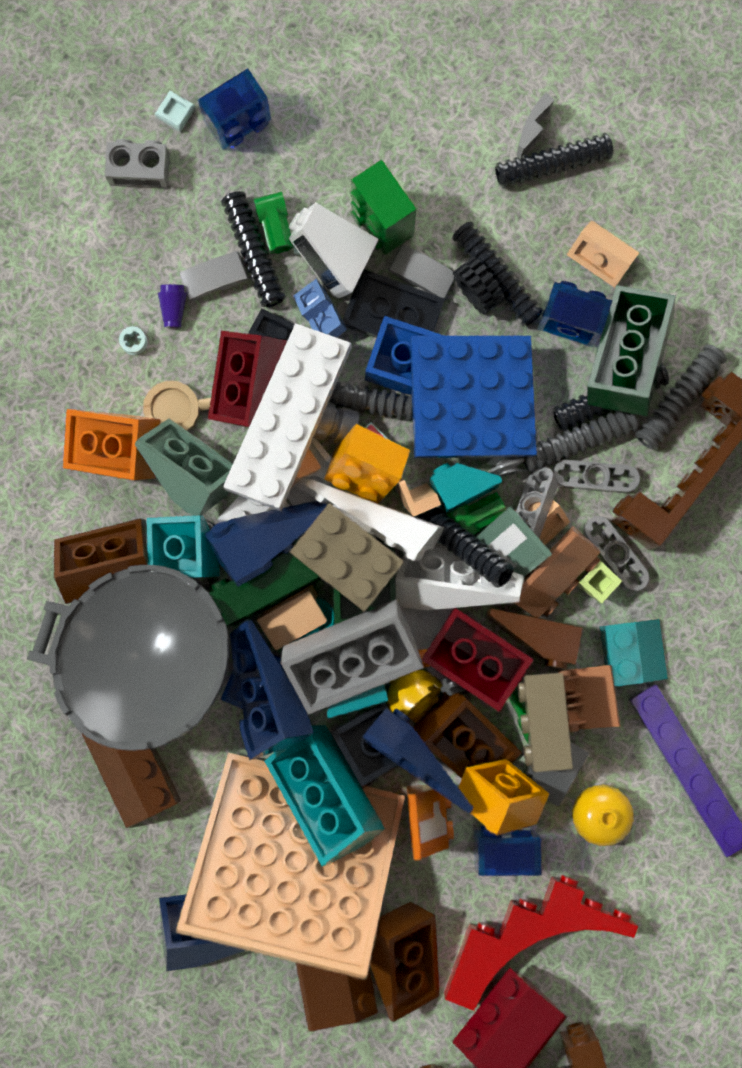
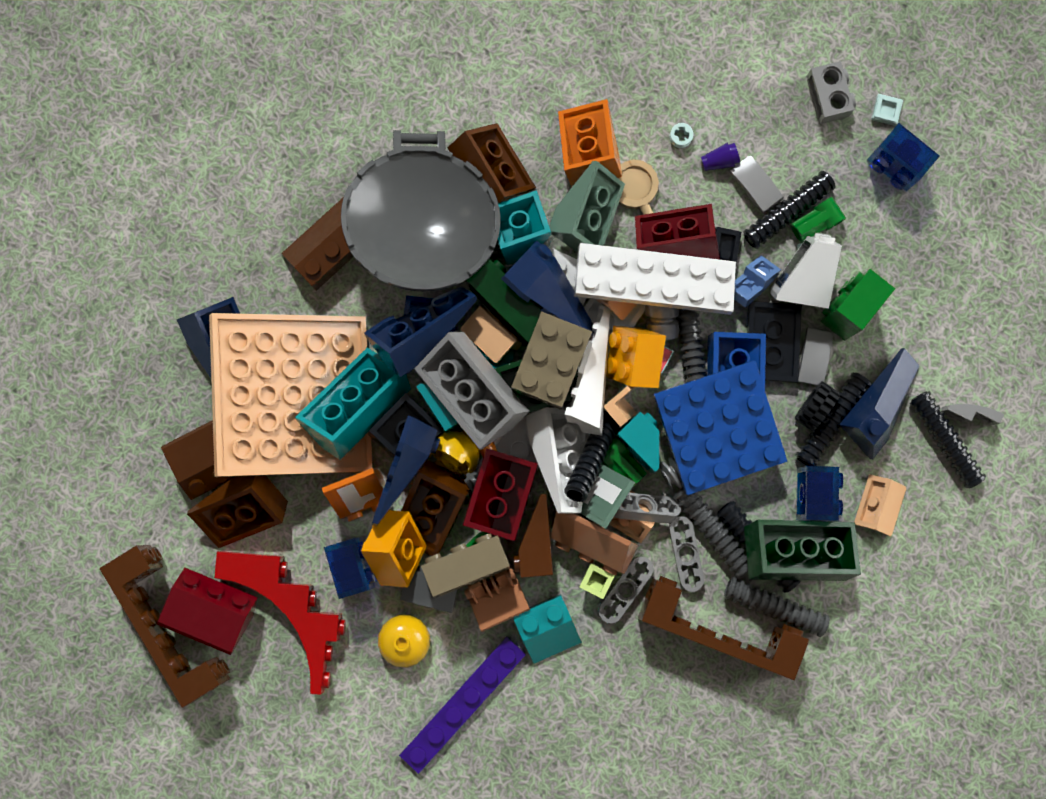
camera: 75 degrees right, 0 degrees up
(501, 224) = (878, 409): none -> dark blue wedge

